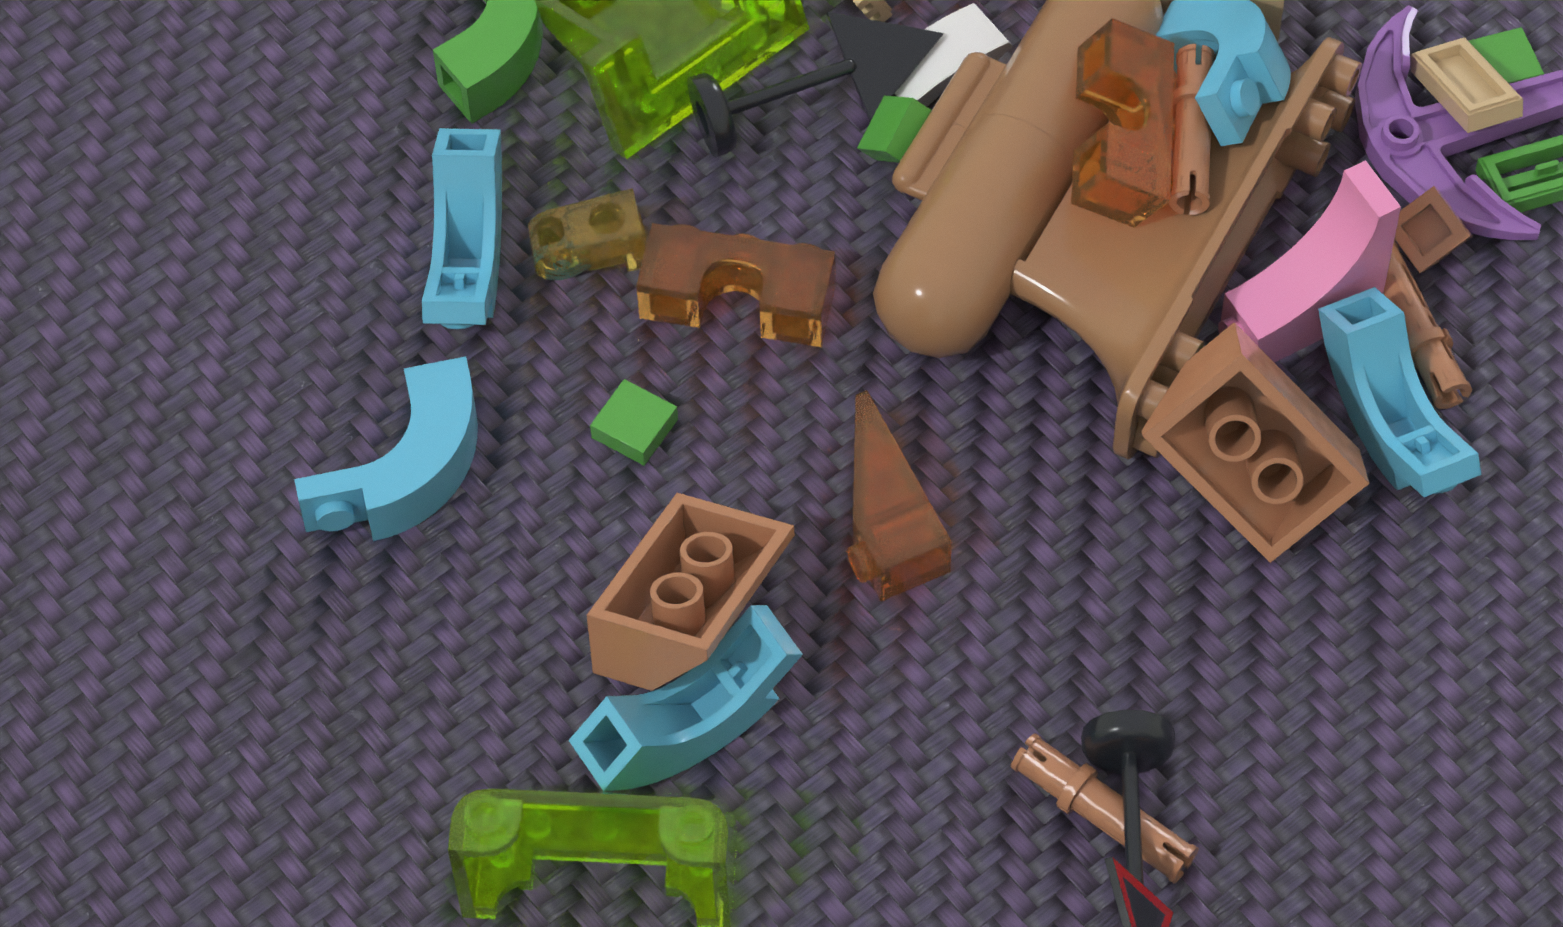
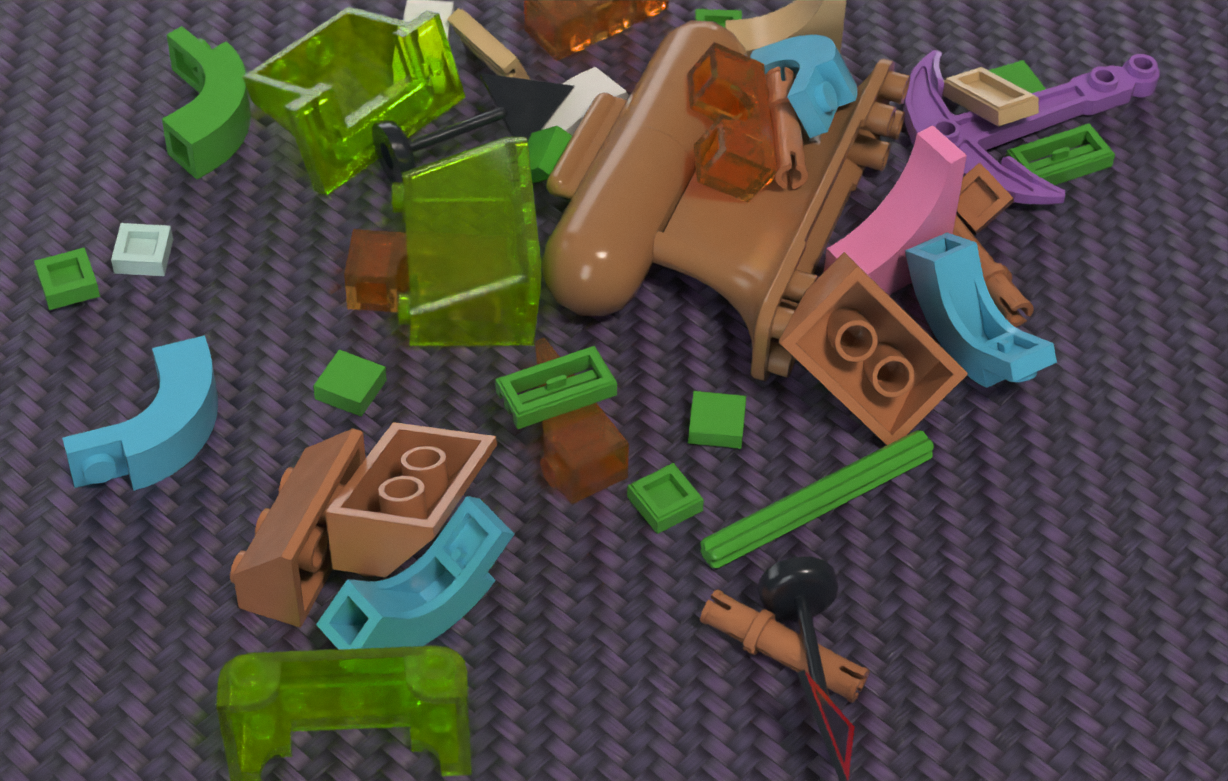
camera: 10 degrees left, 10 degrees down
(309, 257) = (67, 278): none -> bright green plate
(399, 220) = (142, 249): none -> light aqua tile
(466, 228) = (197, 243): medium azure arch -> none
(546, 642) = (291, 541): none -> nougat slope
(588, 236) = (299, 247): clear yellow leg -> none
(790, 256) = (471, 247): none -> clear neon green windscreen
(877, 470) = (559, 393): none -> bright green tile
(990, 605) = (665, 498): none -> bright green tile
(1065, 506) = (717, 419): none -> bright green tile
(1170, 621) = (816, 499): none -> bright green axle

